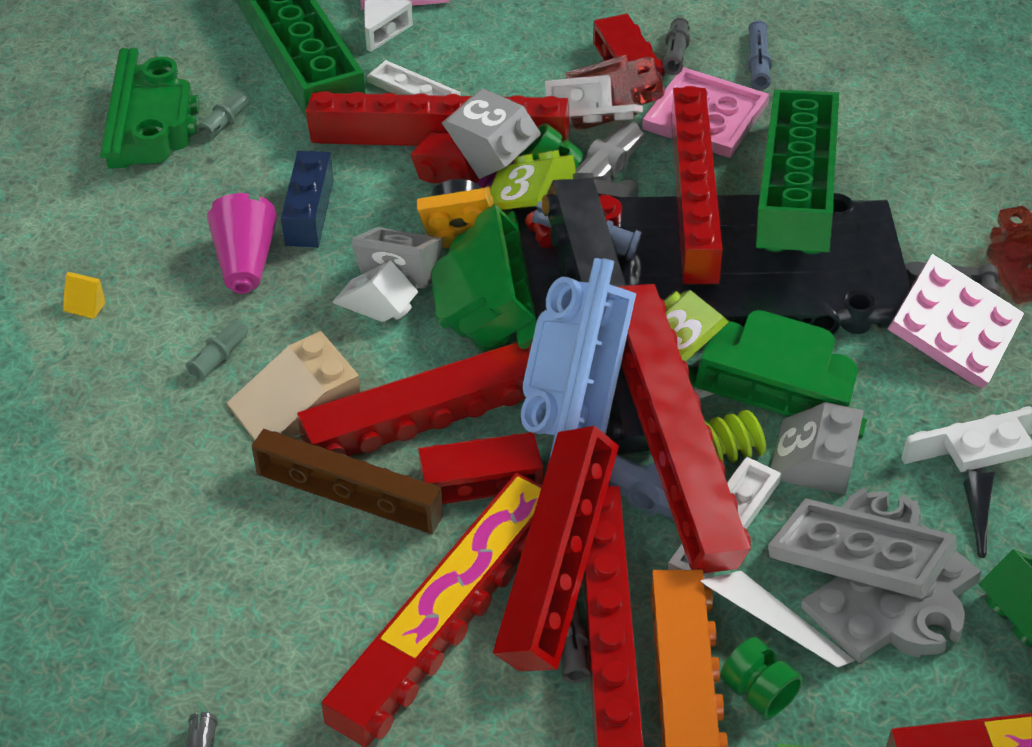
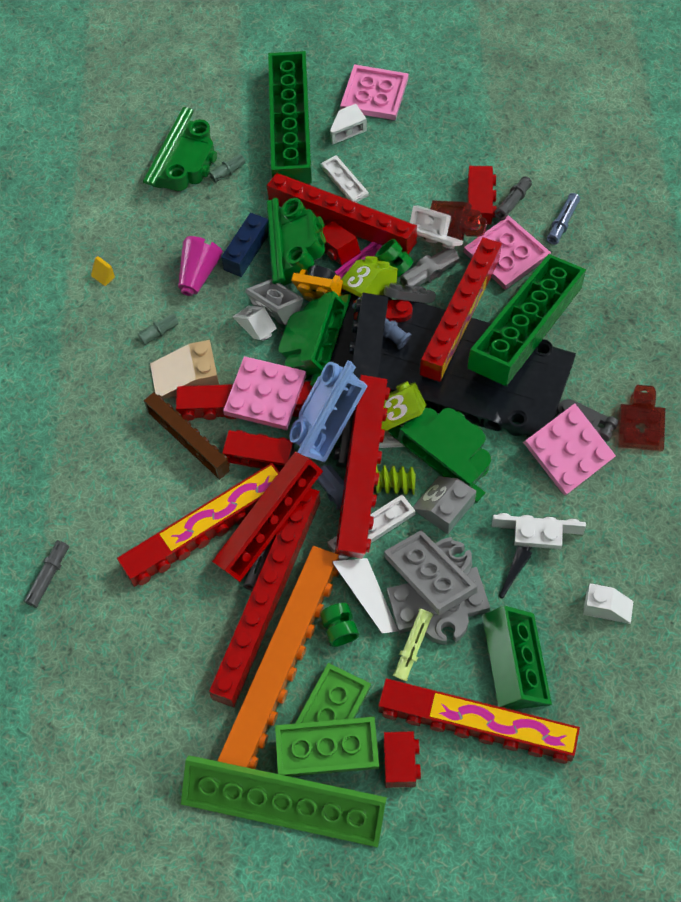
camera: 25 degrees right, 15 degrees up
(385, 164) = (294, 238): none -> green brick
(452, 377) = (265, 393): none -> bright pink plate
(490, 131) = (358, 237): light grey slope -> none
(899, 681) = (412, 645): none -> yellowish green pin

